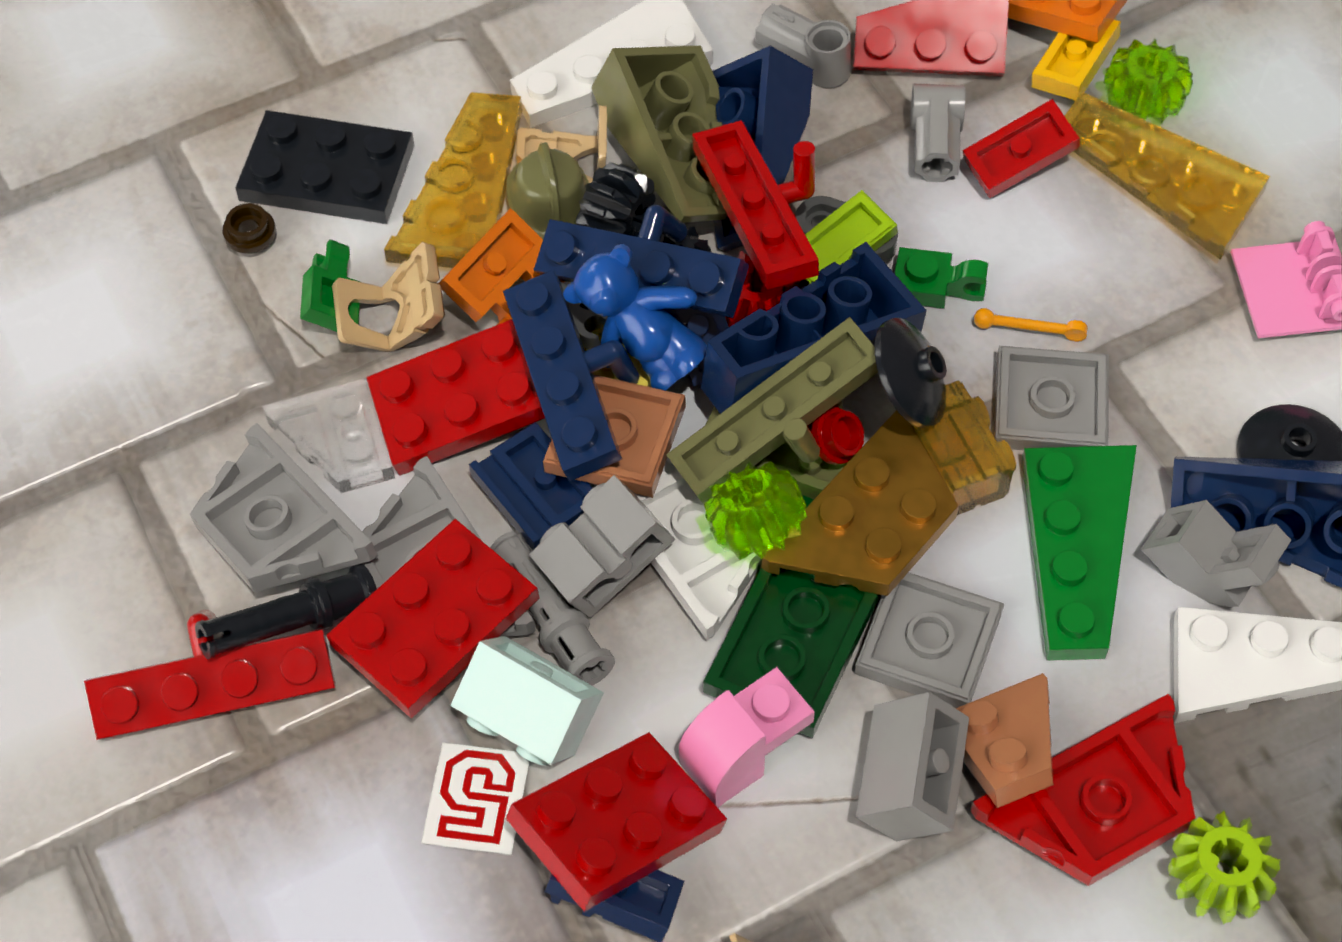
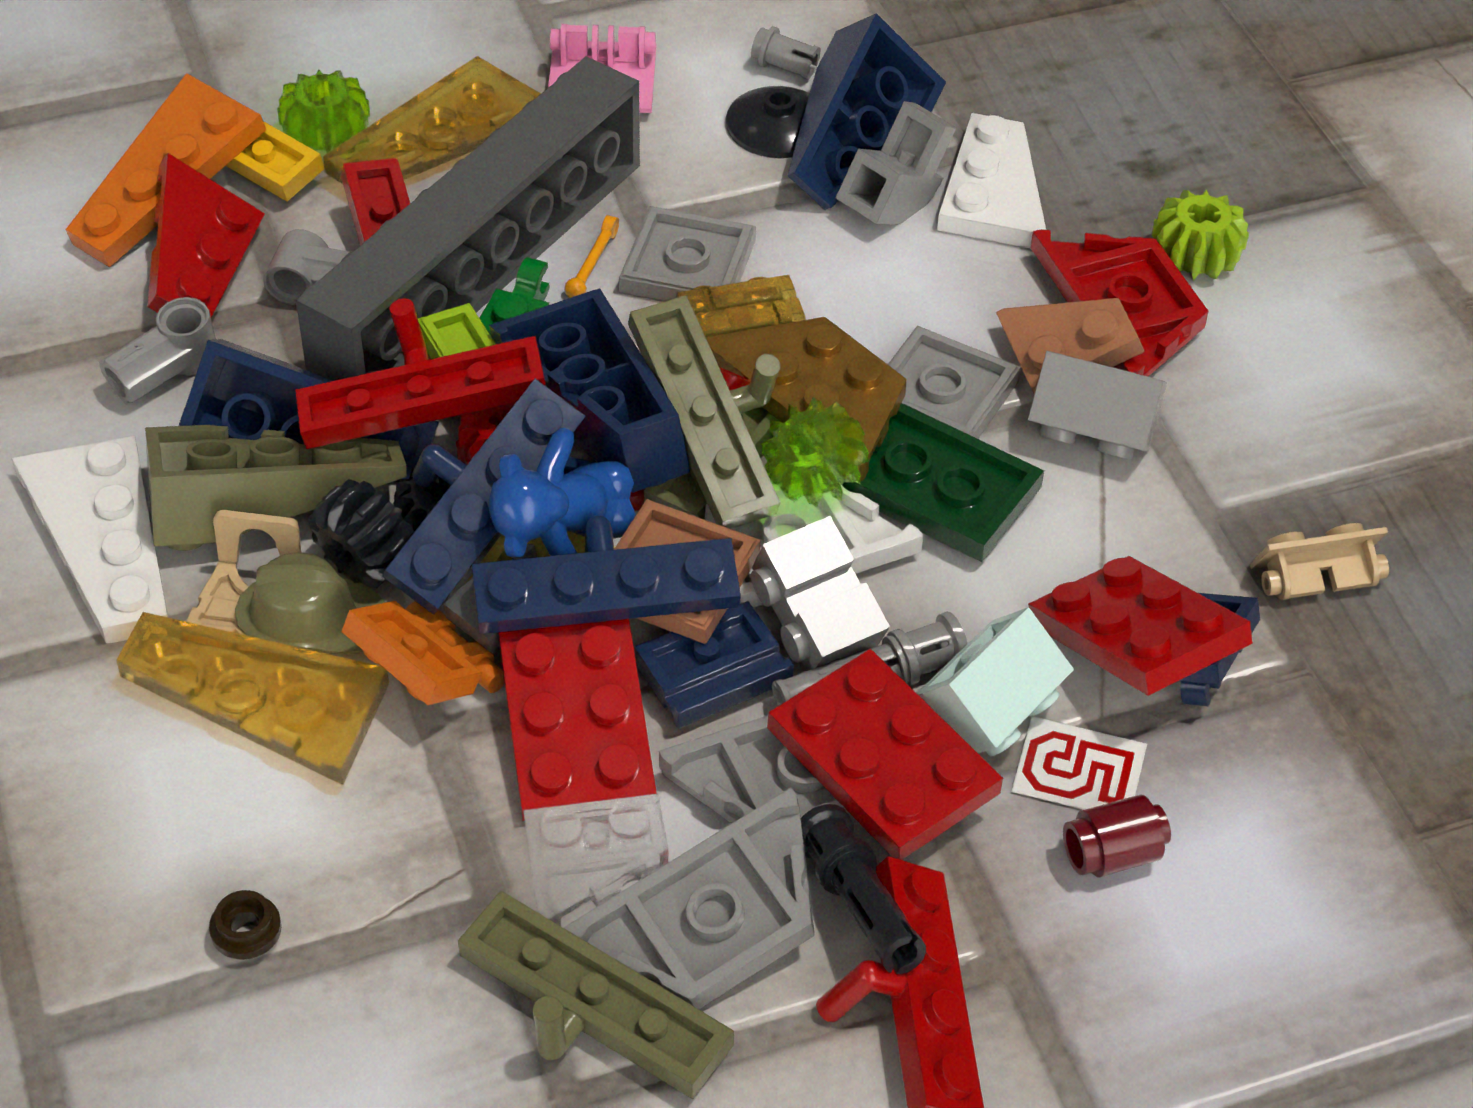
camera: 85 degrees left, 10 degrees down
(194, 453) = (594, 993): none -> olive plate
(317, 283) = (391, 835): green plate -> none
(325, 167) = (162, 840): black plate -> none
(378, 820) = (1116, 836): none -> dark red brick
(411, 285) = (436, 730): tan piece -> none
(734, 733) = (1062, 514): bright pink brick -> none
(911, 372) = (696, 283): black dish -> none
(1015, 215) = (477, 220): none -> dark grey brick
(1077, 538) = (859, 270): green wing -> none

